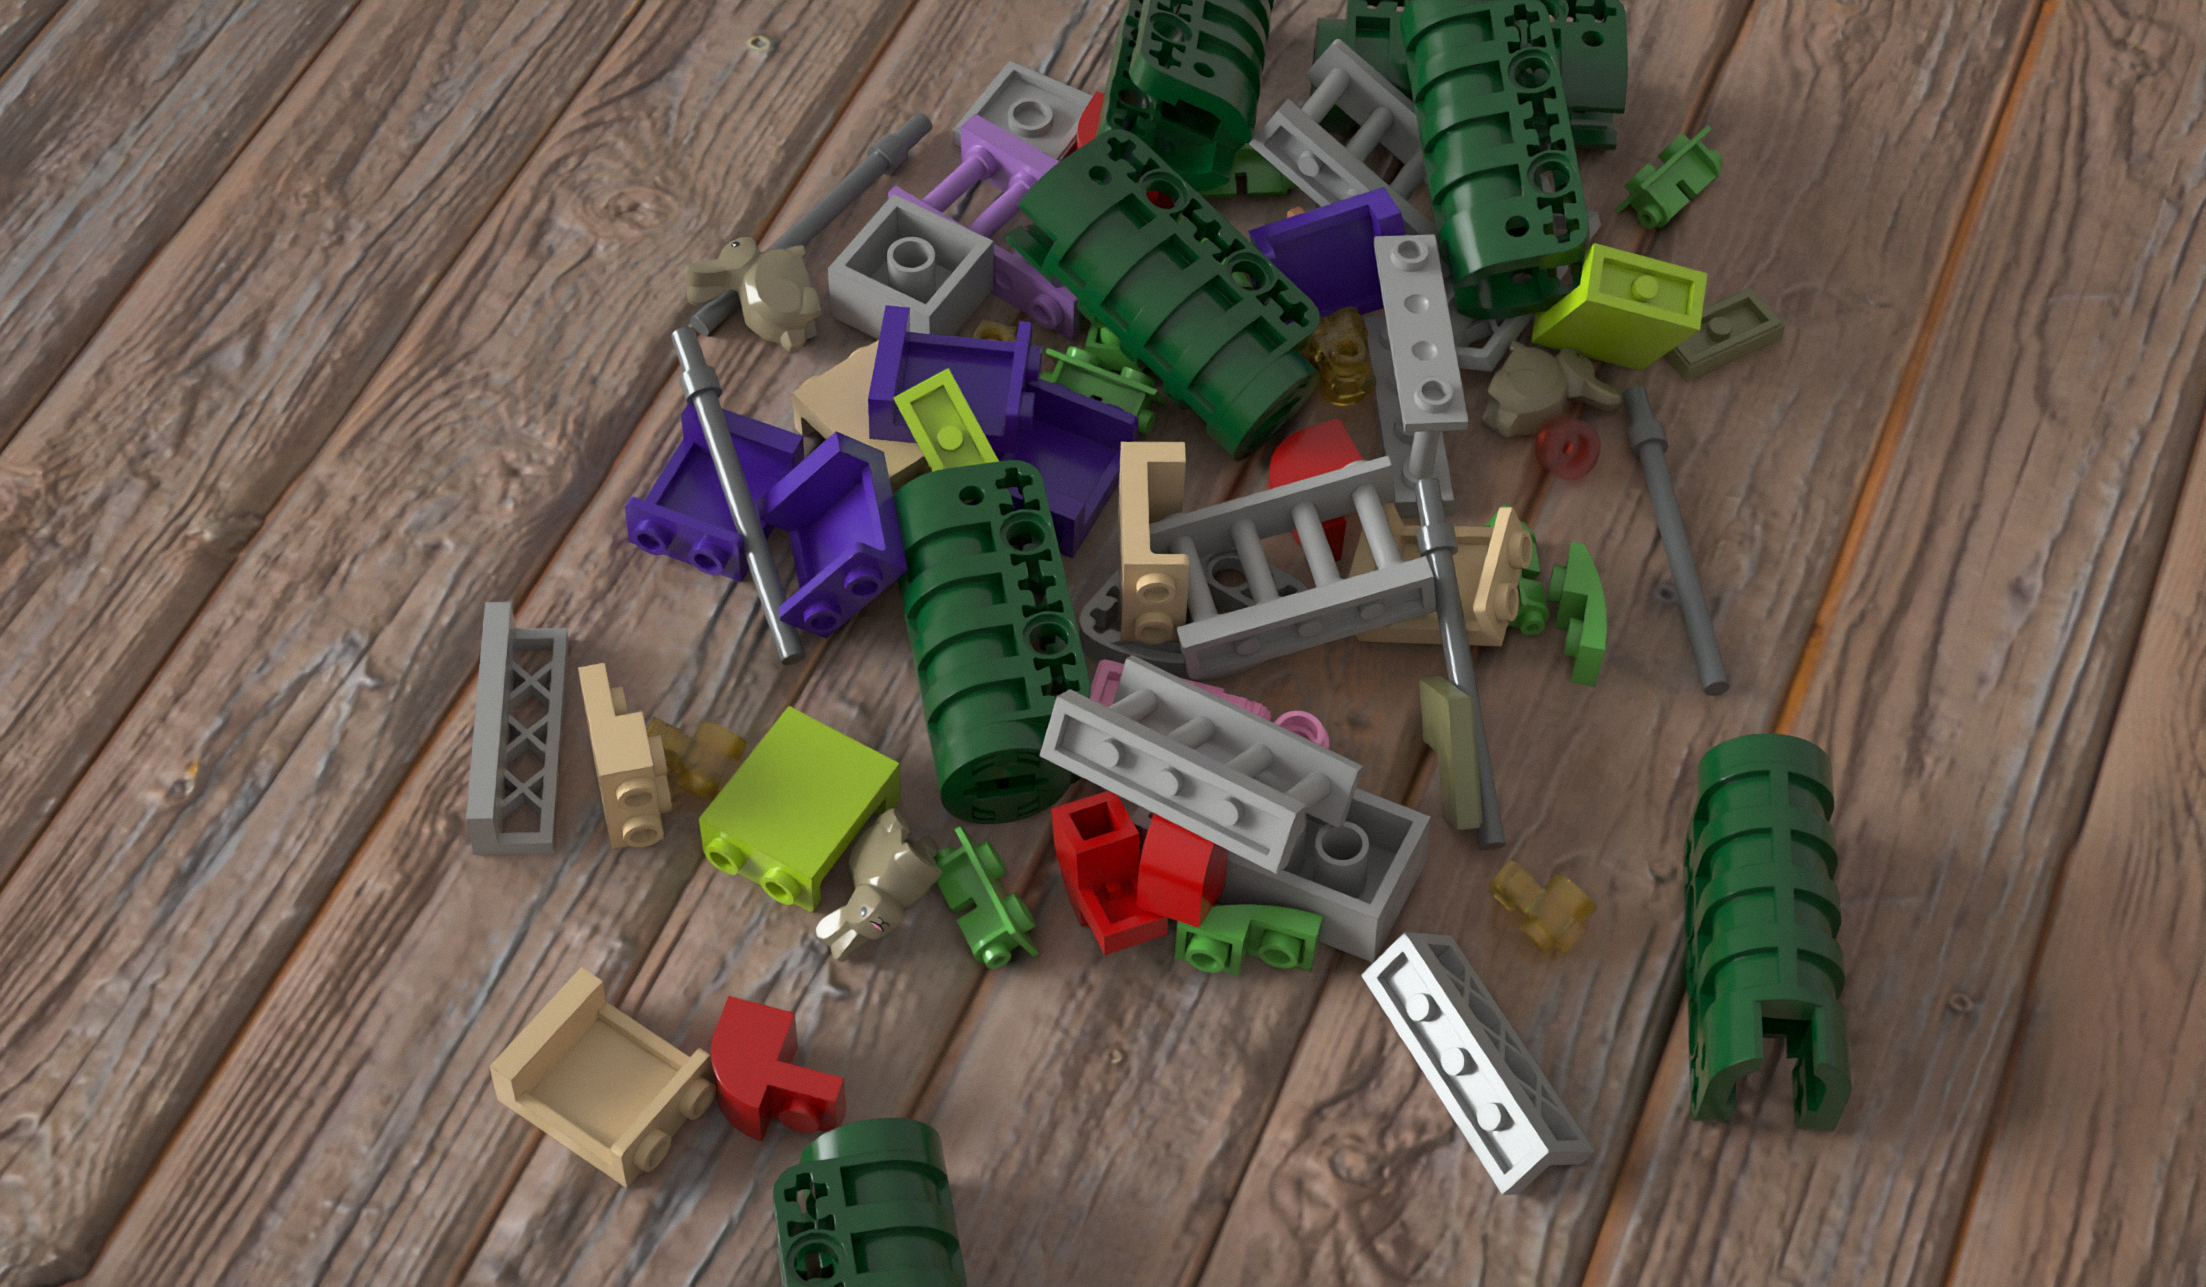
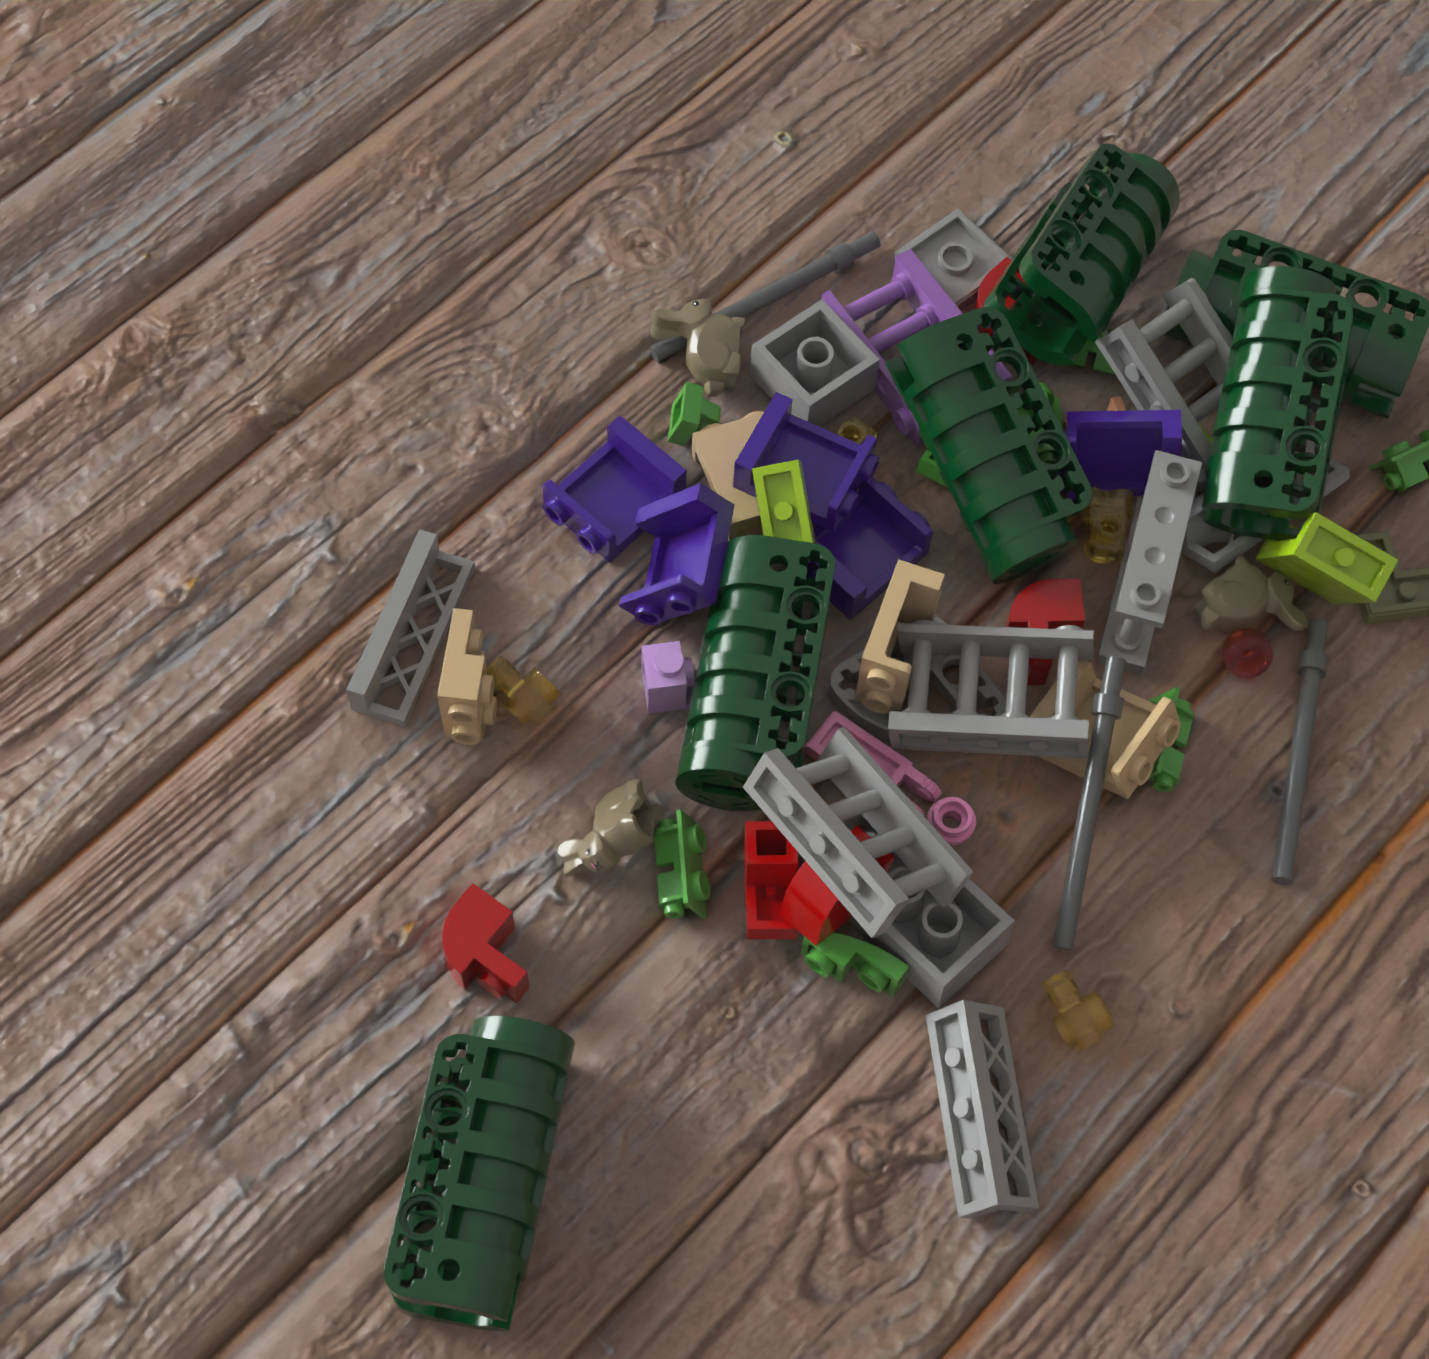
camera: 20 degrees right, 10 degrees up
(602, 1081) = (371, 910): tan panel -> none
(702, 391) = (626, 414): dark grey bar -> none
(775, 375) = (691, 414): none -> bright green tile
(797, 807) = (577, 753): lime panel -> none
(874, 685) = (666, 677): none -> lavender brick
(1129, 390) = (908, 484): bright green hinge -> none
(1451, 732) = (1060, 862): olive tile -> none
(1580, 612) = (1202, 787): bright green slope -> none
(1764, 927) = (1230, 1087): dark green piece -> none

